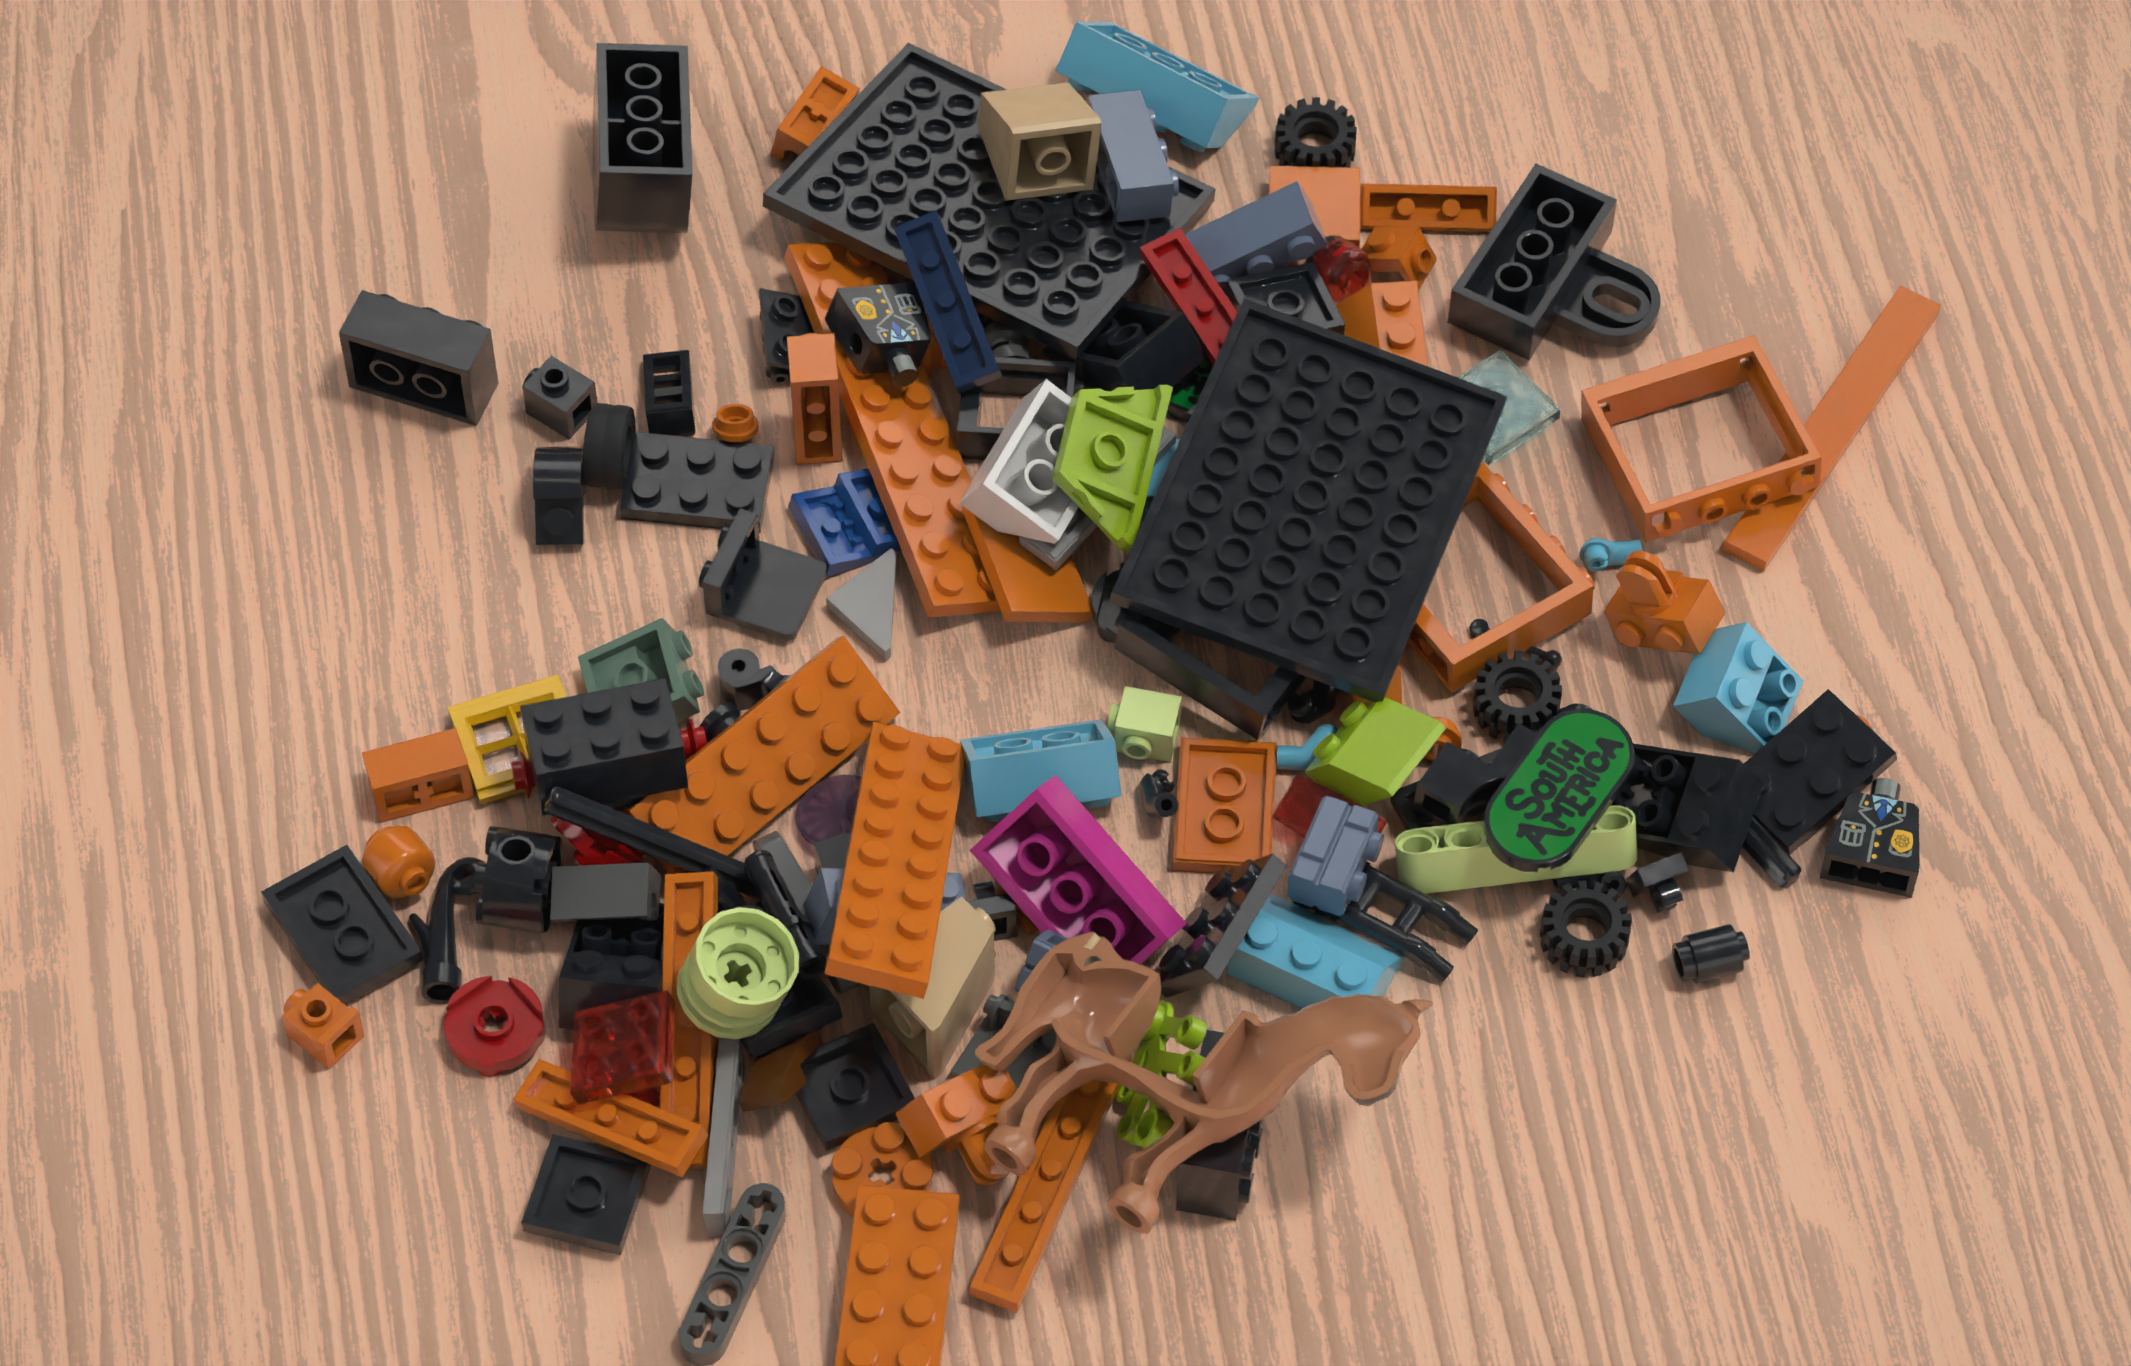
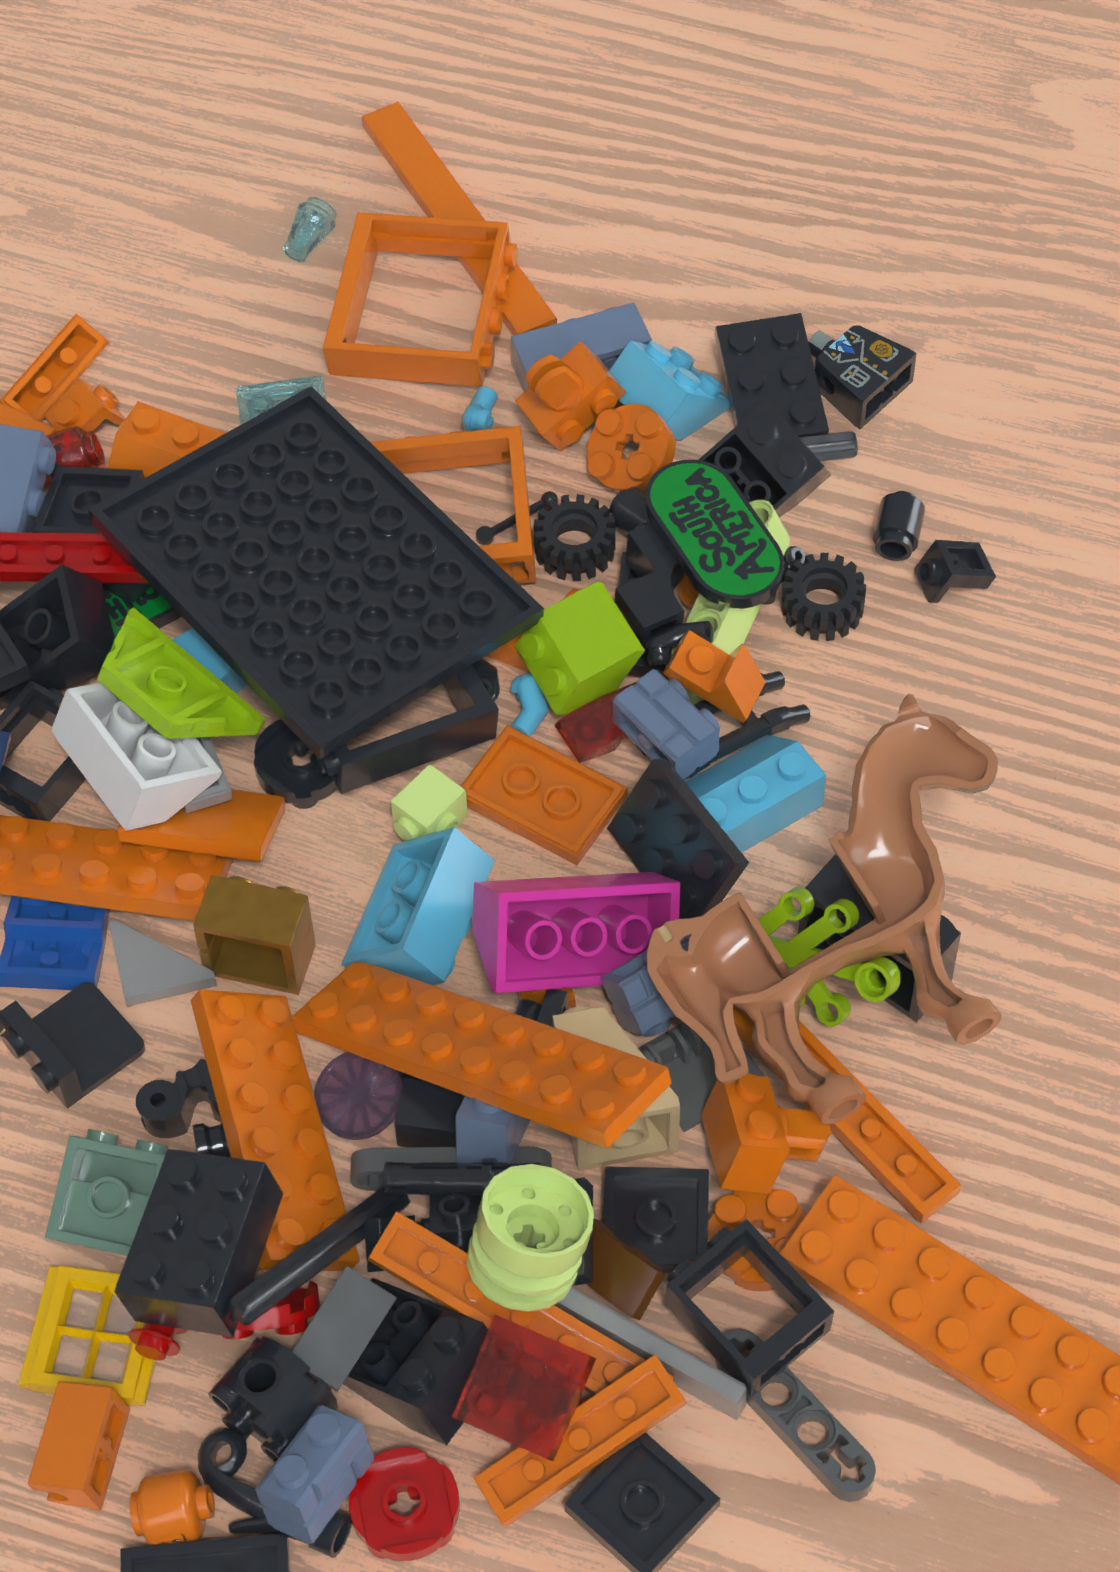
camera: 60 degrees left, 0 degrees up
(469, 937) = (315, 1474): none -> sand blue brick
(776, 1225) = (782, 1348): none -> black window
(932, 652) = (255, 933): none -> pearl gold piece
(1156, 794) = (509, 842): black arm -> none
(1411, 869) = (720, 678): none -> orange slope
(1435, 818) = (660, 644): none -> black arm
(1546, 270) = (184, 322): black brick -> none
(1652, 670) = (614, 431): none -> orange plate
(1660, 881) = (810, 524): black tile -> none
(1693, 1023) = (953, 565): none -> black bracket
(1730, 313) = (310, 226): none -> clear light blue cone
(1745, 593) = (602, 332): none -> sand blue brick

